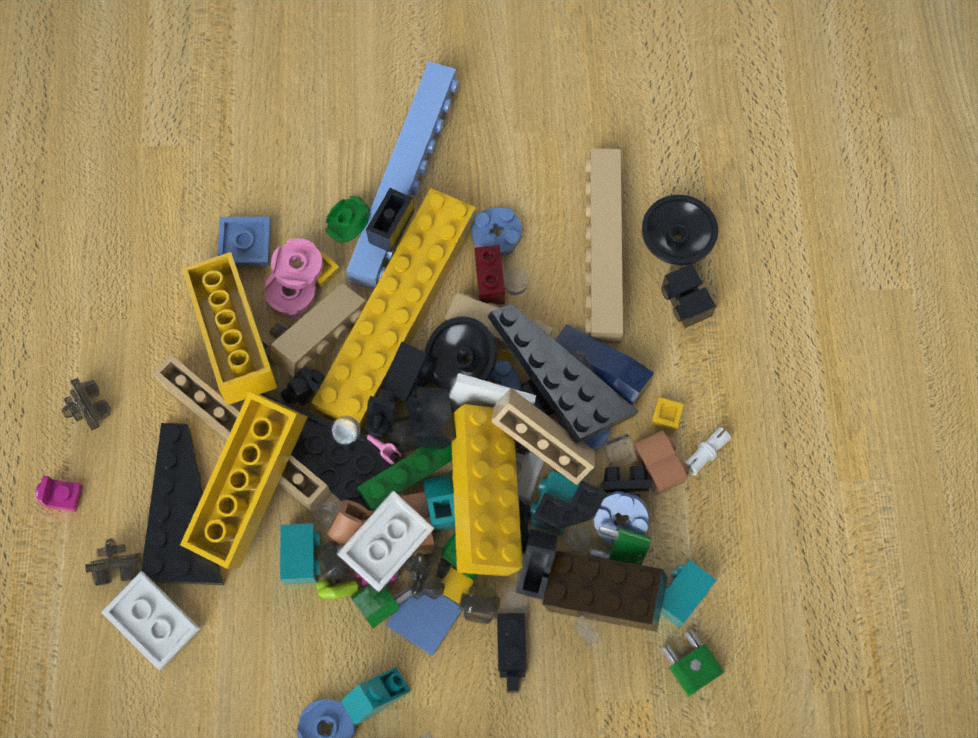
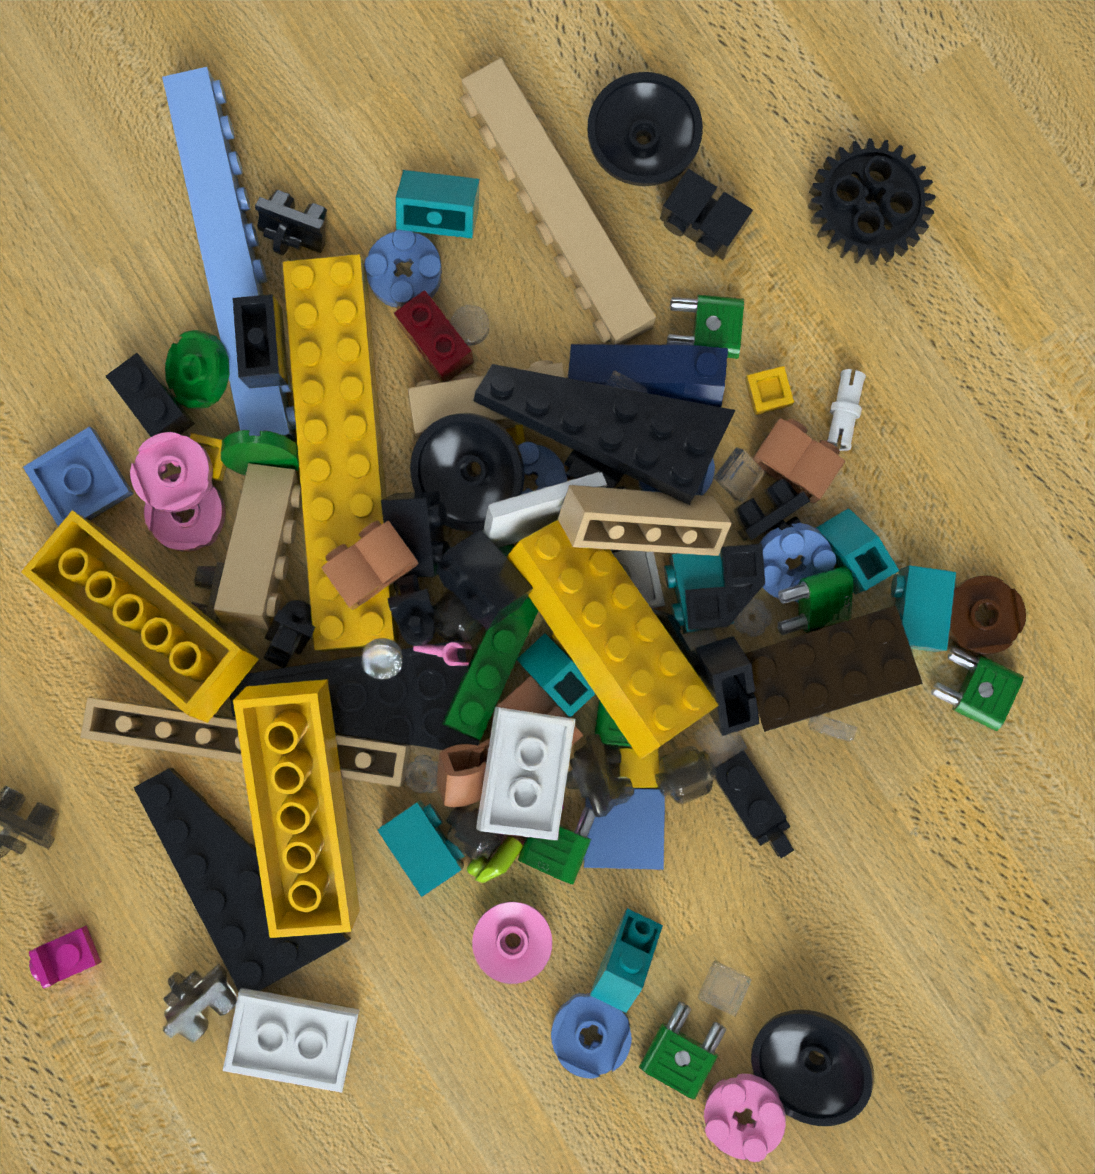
camera: 30 degrees left, 15 degrees up
(301, 638) = (509, 963): none -> bright pink dish
(312, 218) = (149, 397): none -> black brick
(355, 278) = (266, 449): none -> green tile
(372, 370) = (368, 564): none -> nougat brick
(448, 175) = (290, 226): none -> black hips
(536, 206) = (437, 204): none -> teal brick
(658, 358) = (716, 322): none -> green piece
(664, 535) = (858, 550): none -> teal slope
(736, 615) = (1001, 630): none -> reddish brown plate
(815, 342) = (900, 186): none -> black gear

